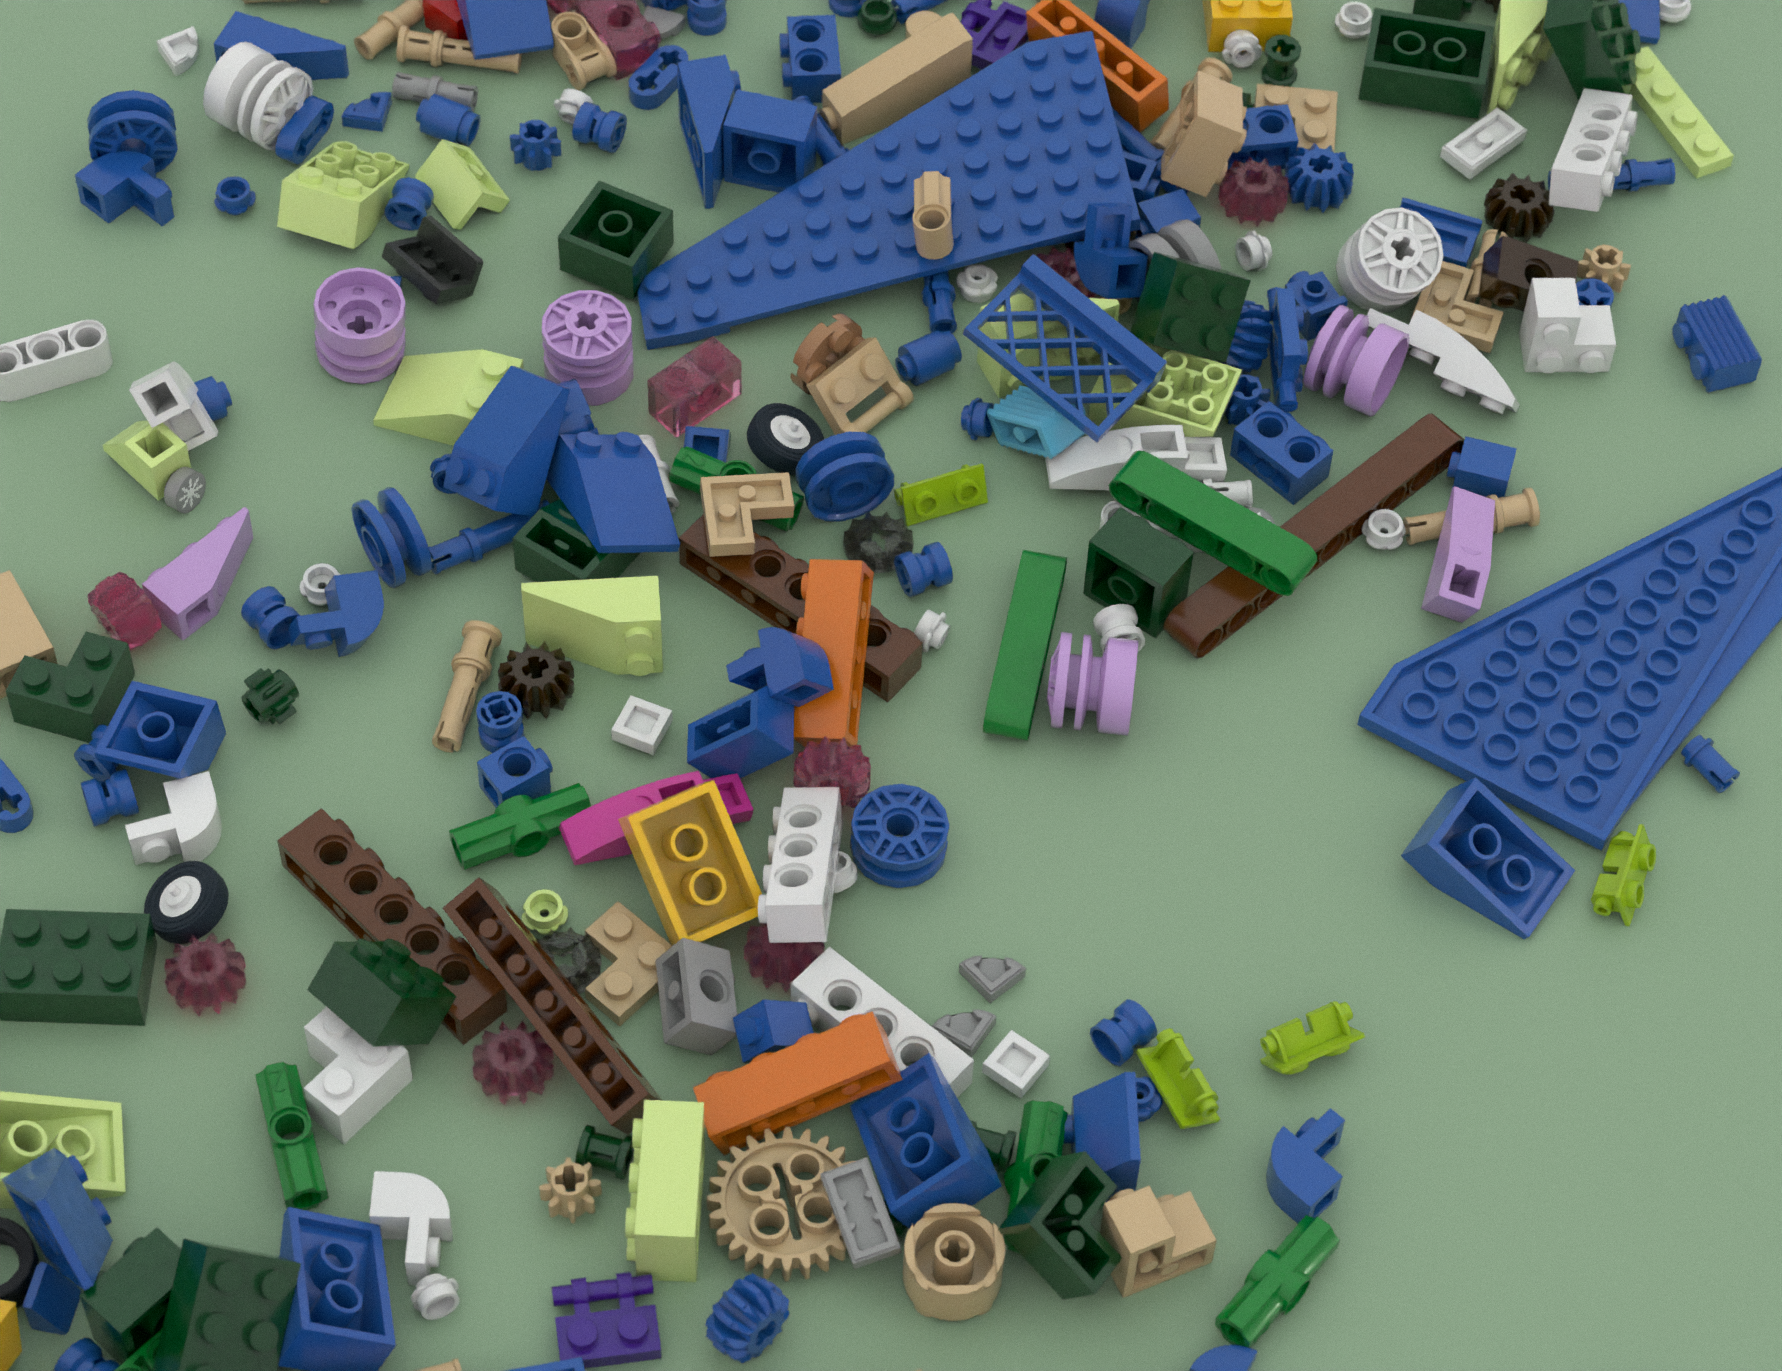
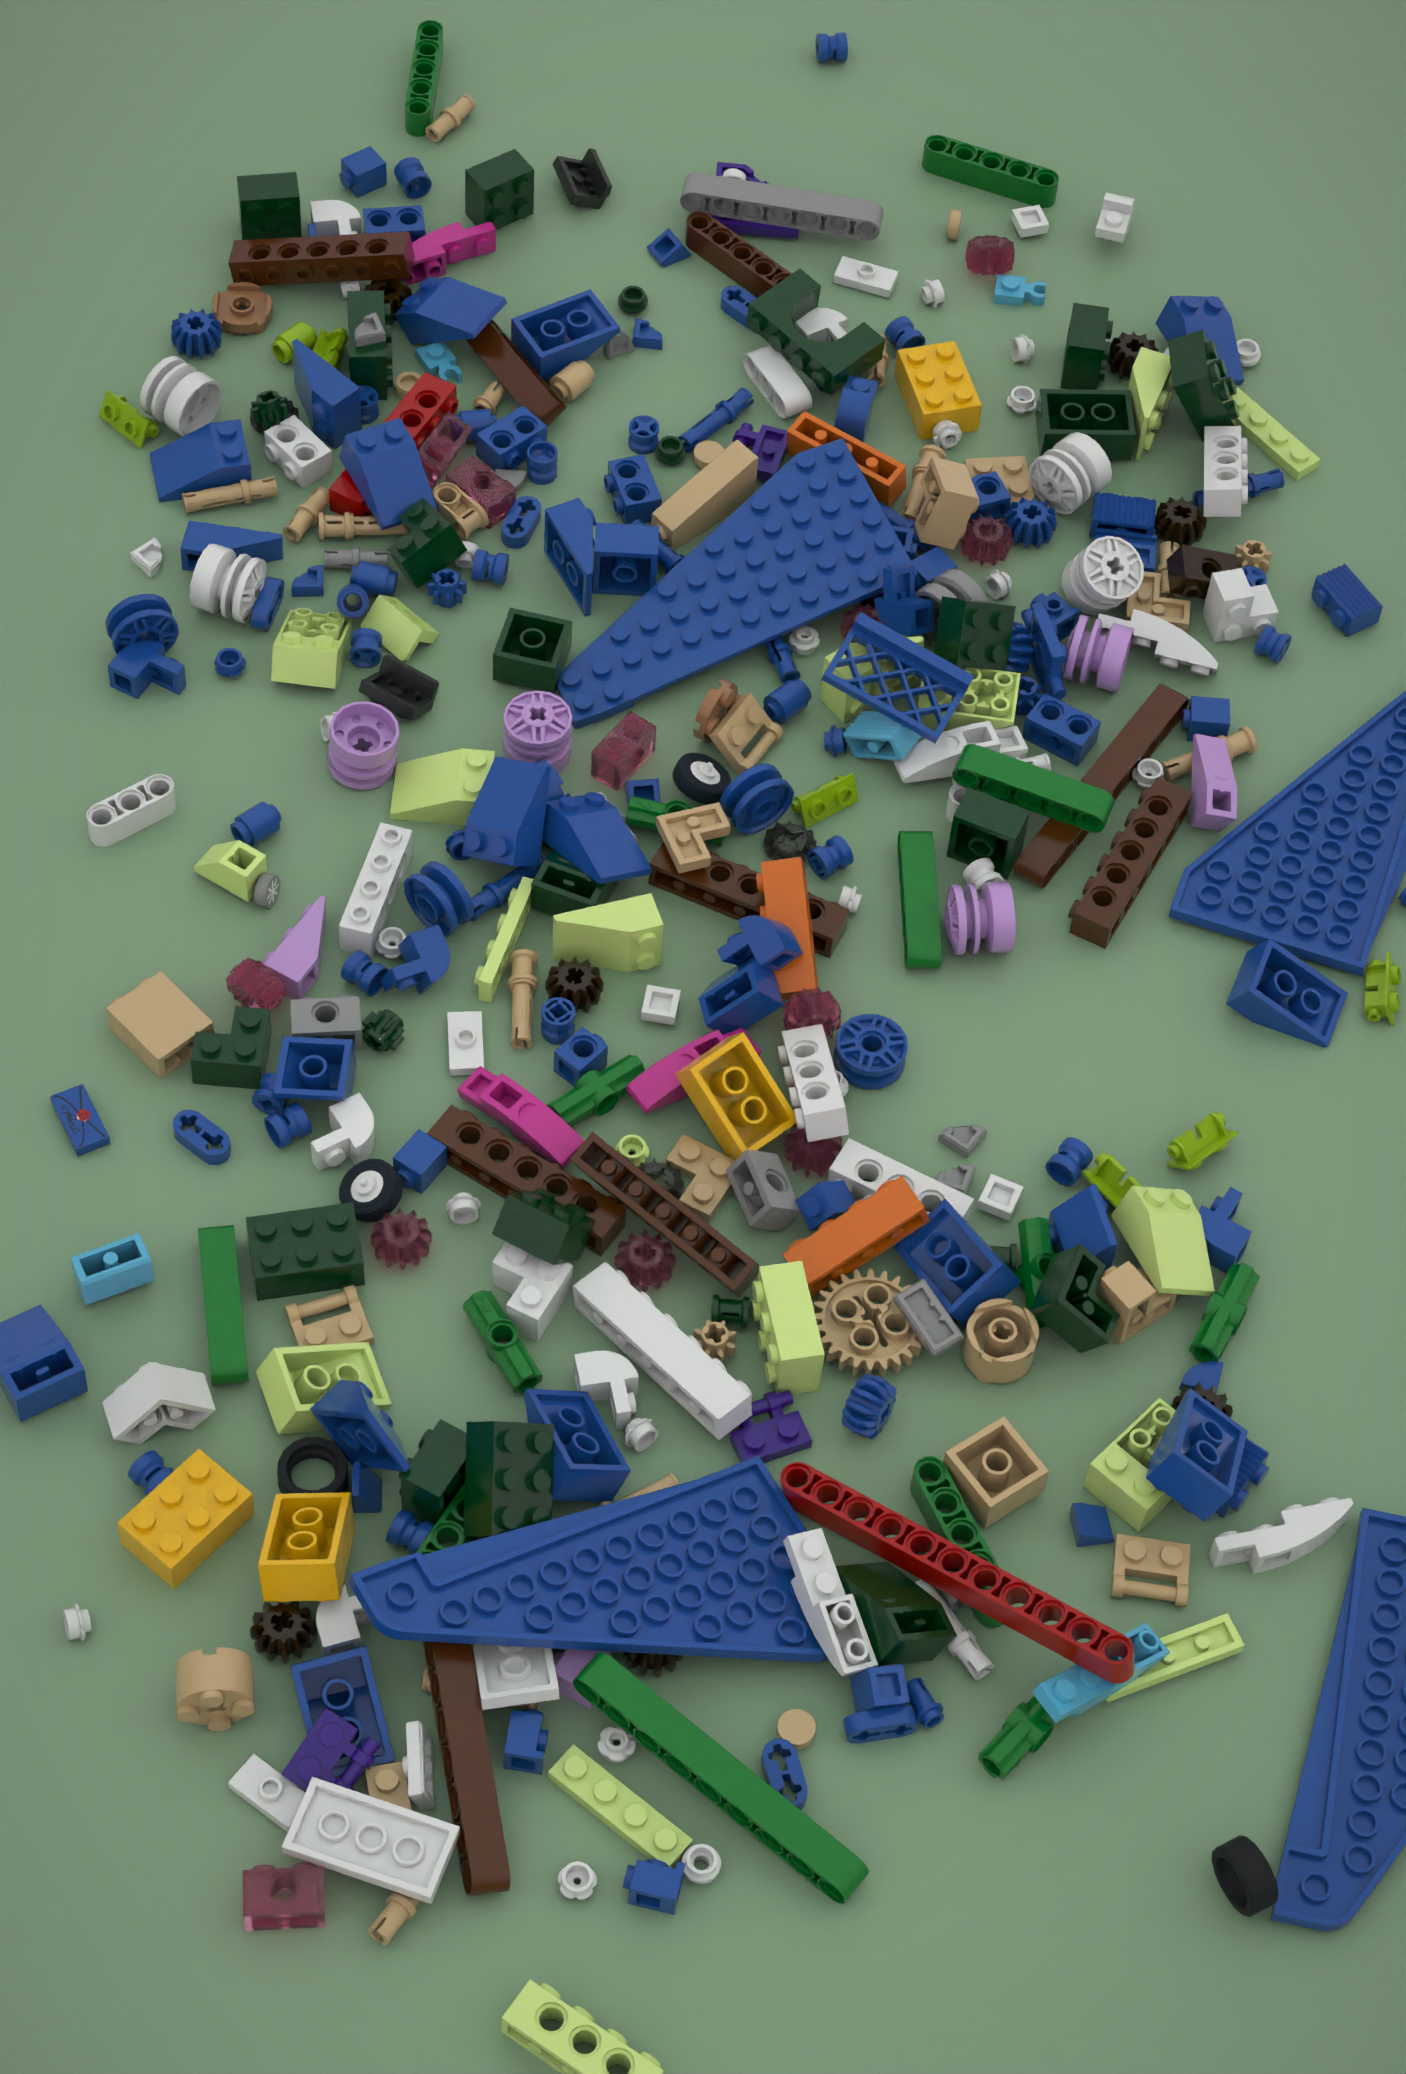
camera: 15 degrees left, 0 degrees up
(88, 1079) = (339, 1329): none -> tan plate
(172, 399) = (247, 826): white brick -> none
(225, 666) = (341, 1012): none -> light grey brick
(262, 876) = (420, 1161): none -> blue brick
(300, 948) = (463, 1208): none -> white plate
(319, 511) = (376, 889): none -> white brick
(374, 731) = (465, 1042): none -> white plate
(398, 146) = (348, 610): none -> blue brick
(410, 836) = (522, 1113): none -> dark pink slope
(475, 595) = (509, 931): none -> yellowish green plate
(496, 1190) = (663, 1350): none -> white brick
(523, 87) = (427, 545): none -> dark green brick
(933, 215) = (768, 594): tan piece -> none
(1220, 1166) = (1166, 1239): none -> yellowish green slope
(1281, 61) = (980, 438): dark green bush -> none
(1373, 594) = (1130, 862): none -> reddish brown brick
(1386, 122) = (1070, 473): none -> white wheel
(1444, 185) = (1122, 513): none -> blue brick
(1483, 143) = (1141, 476): white plate -> none
(1600, 386) = (1272, 644): none -> blue wheel

